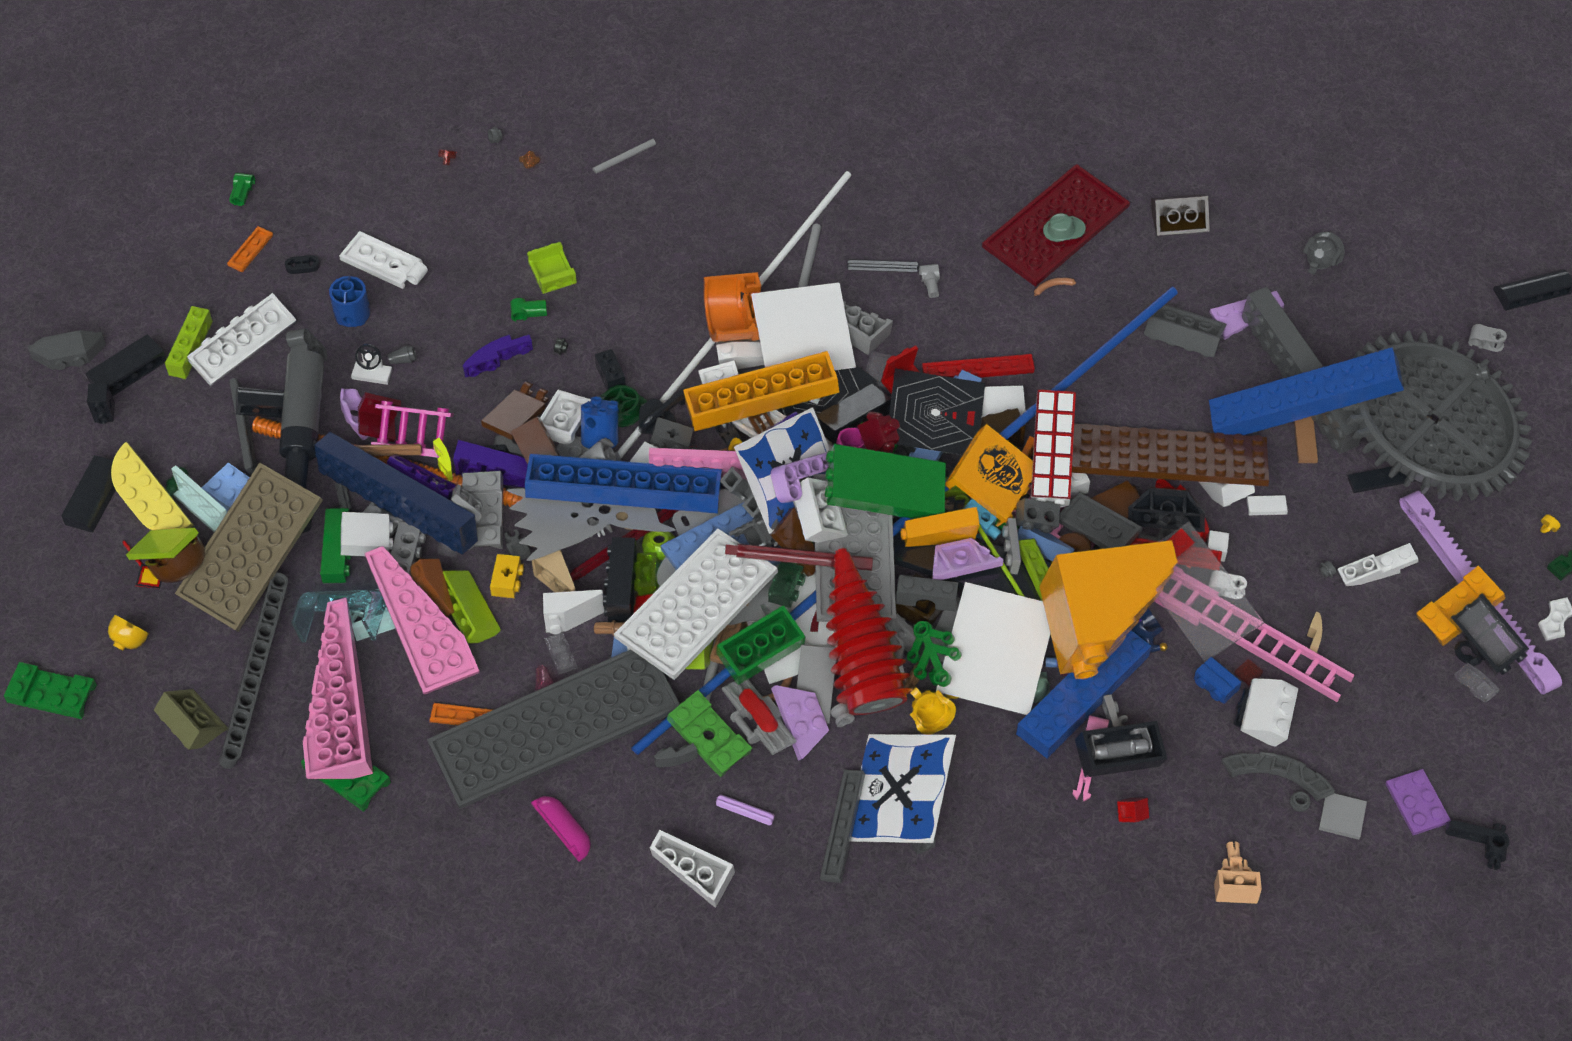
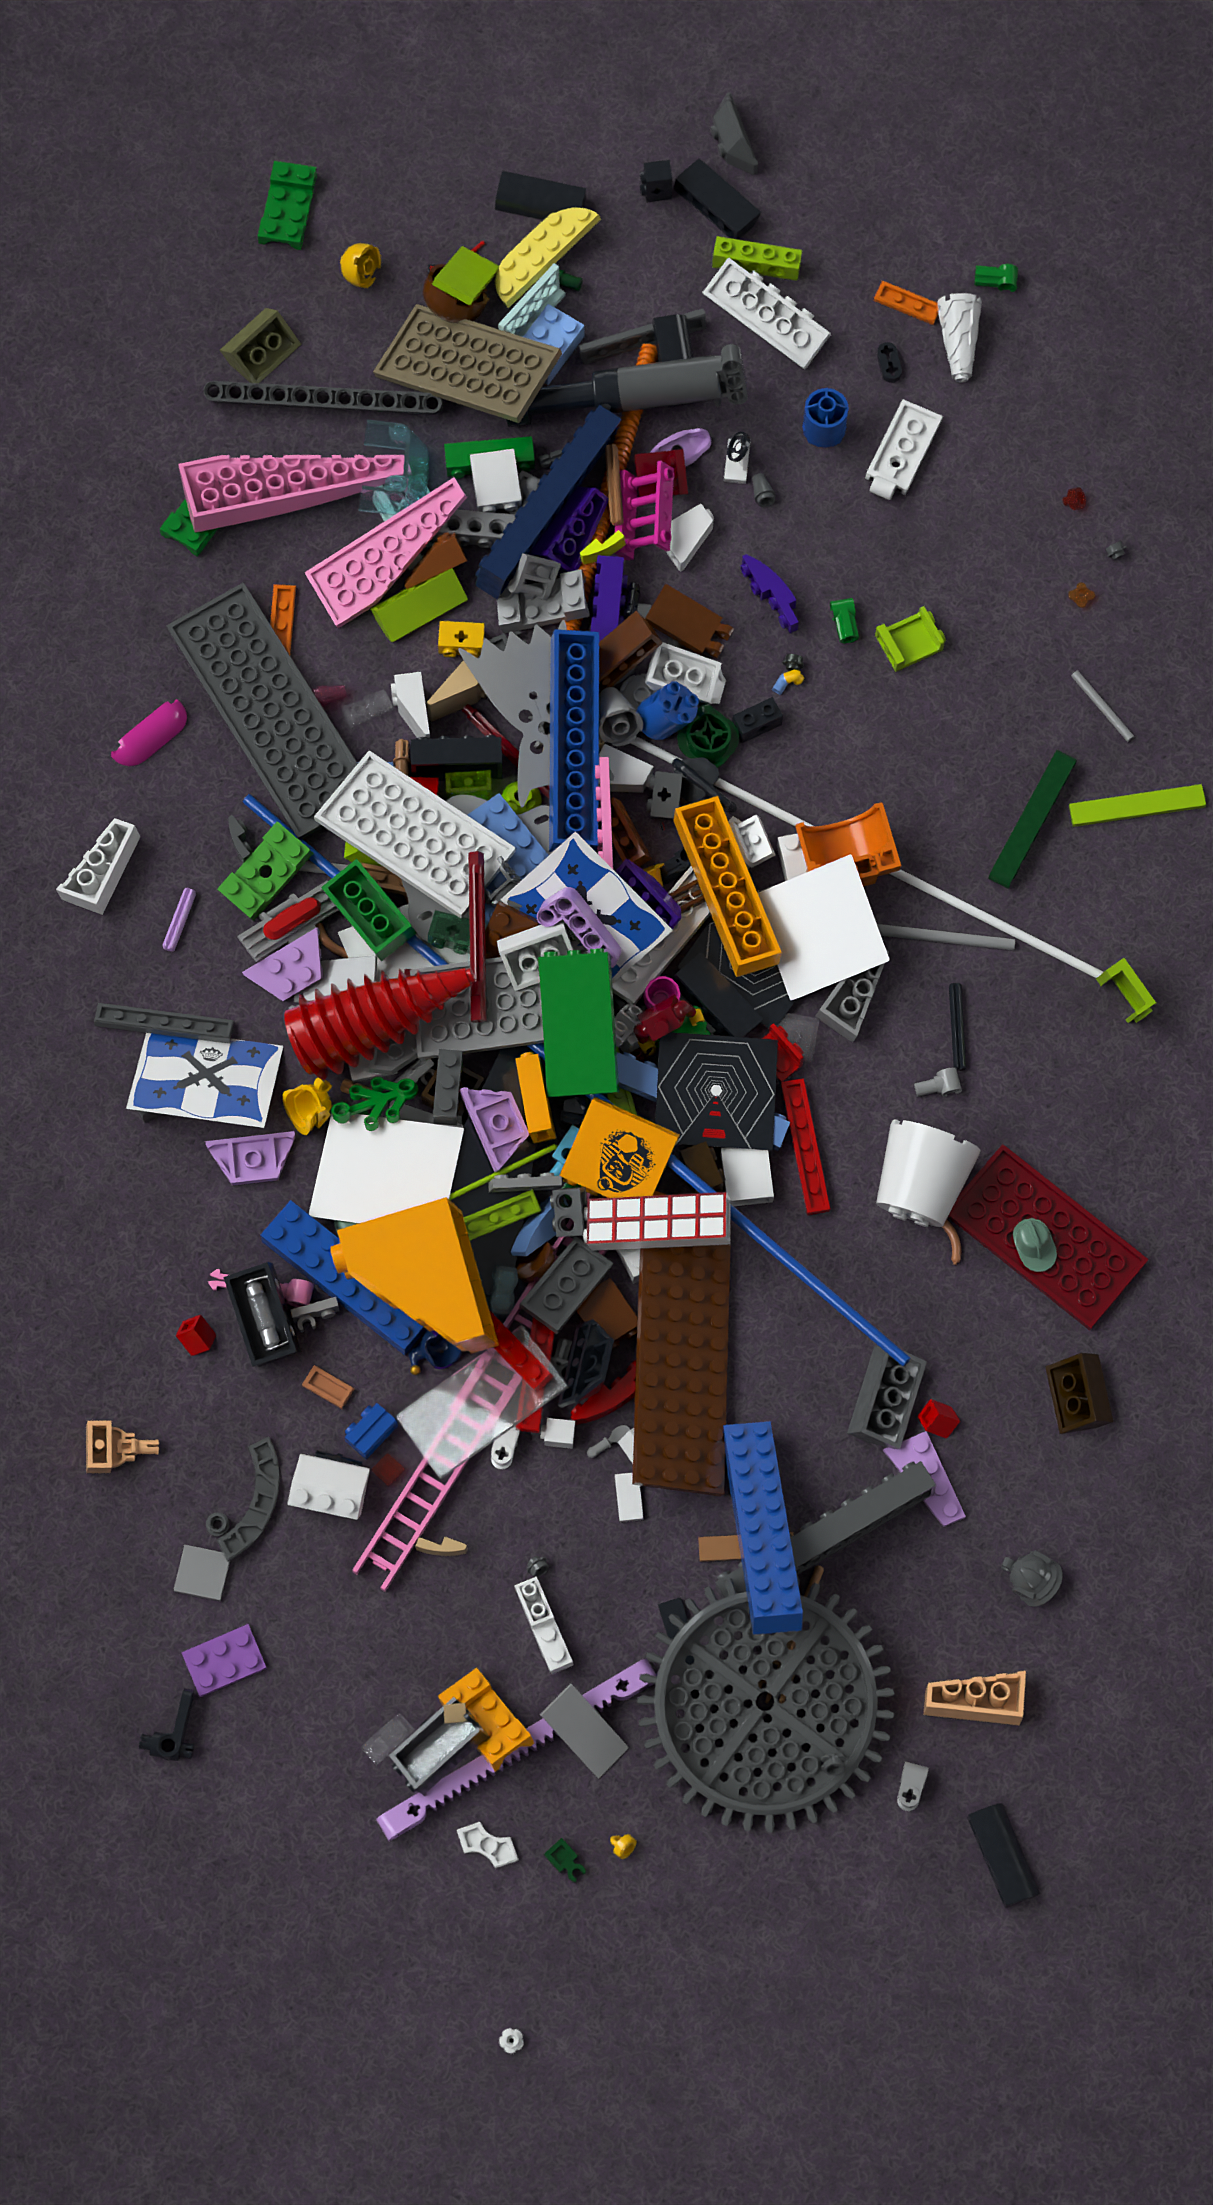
camera: 85 degrees right, 15 degrees up
(281, 211) = (960, 332): none -> white cone
(429, 399) = (688, 534): none -> white slope
(573, 352) = (785, 679): none -> arm
(709, 142) = (1137, 805): none -> lime tile
(716, 203) = (1032, 818): none -> dark green beam
(865, 150) = (1130, 987): none -> lime panel
(972, 760) = (252, 1157): none -> lavender wing
(1012, 282) = (923, 1172): none -> white cone
(1177, 713) = (328, 1387): none -> nougat tile
(1200, 300) = (938, 1418): none -> red panel
(1215, 509) = (615, 1436): none -> light grey piece
(1418, 282) = (978, 1699): none -> light nougat wedge
(1463, 618) = (454, 1713): none -> tan sticker
(1464, 539) = (584, 1731): none -> light grey piece

